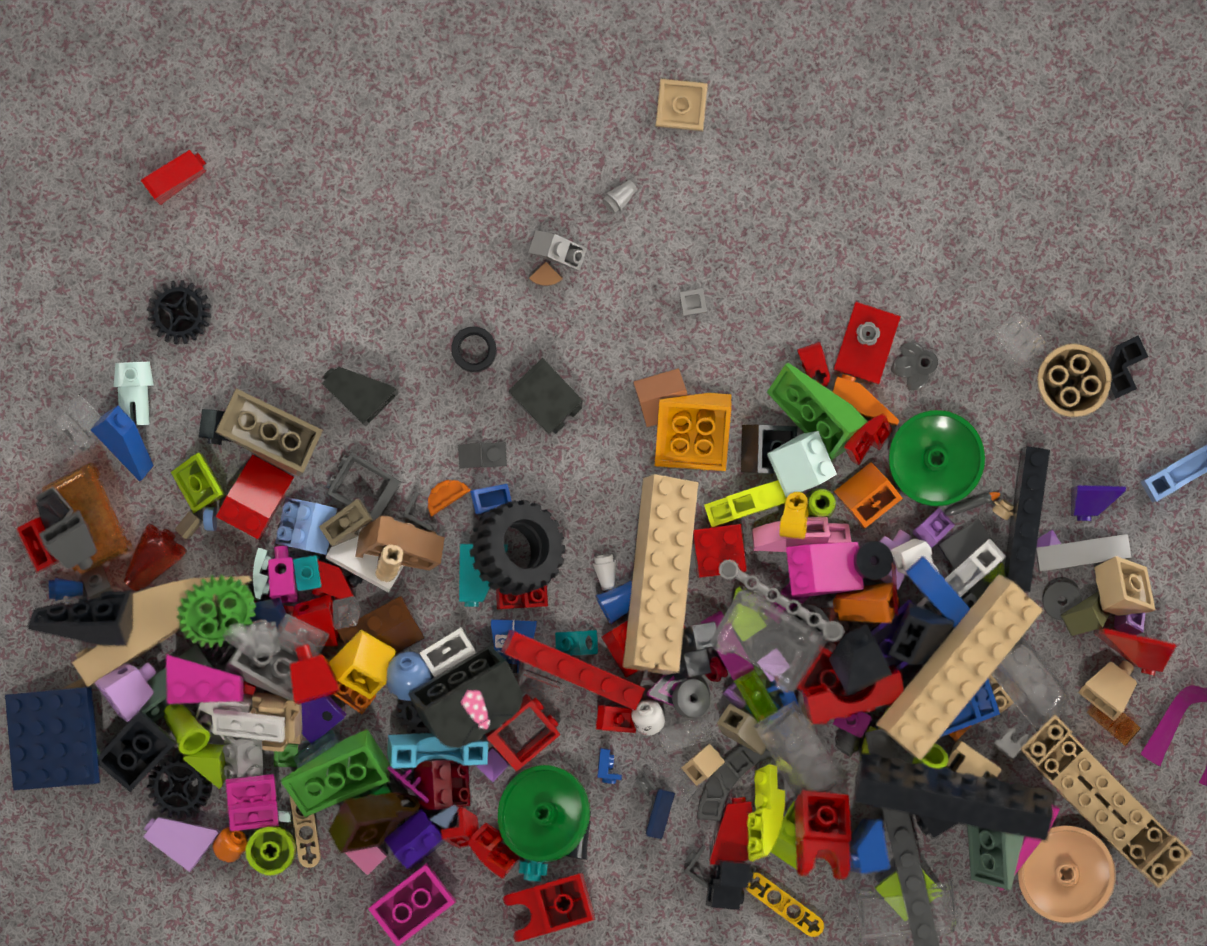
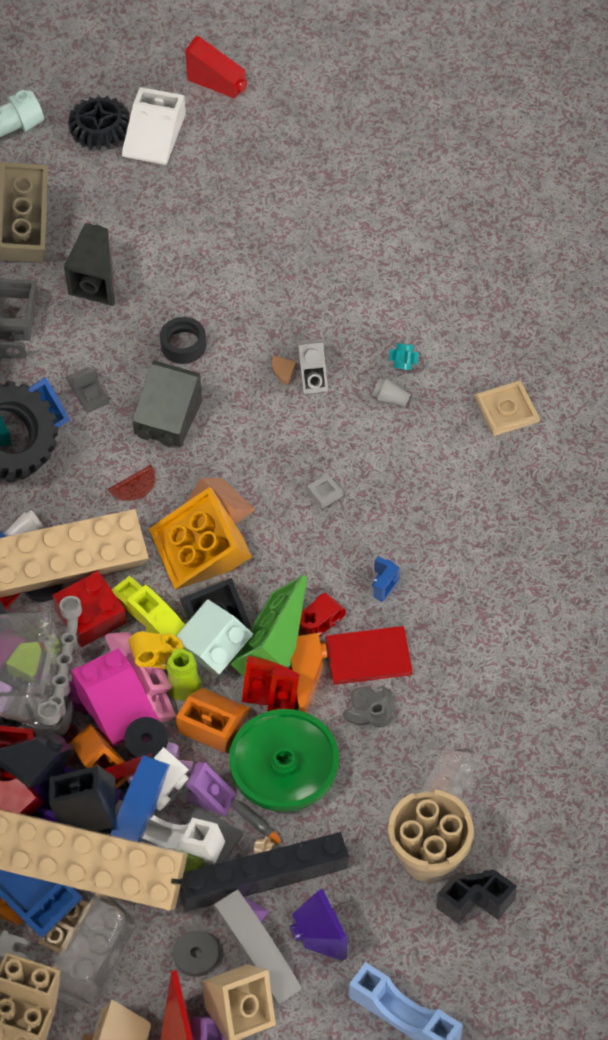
camera: 65 degrees right, 30 degrees down
(213, 265) = (154, 125): none -> white slope
(445, 494) = (31, 373): orange tile -> none
(589, 167) = (403, 356): none -> teal gear
(606, 458) = (134, 486): none -> clear red tile
(808, 296) = (386, 578): none -> blue bracket
(868, 327) = (377, 639): light grey plate -> none
(1085, 616) = (189, 977): olive slope -> none

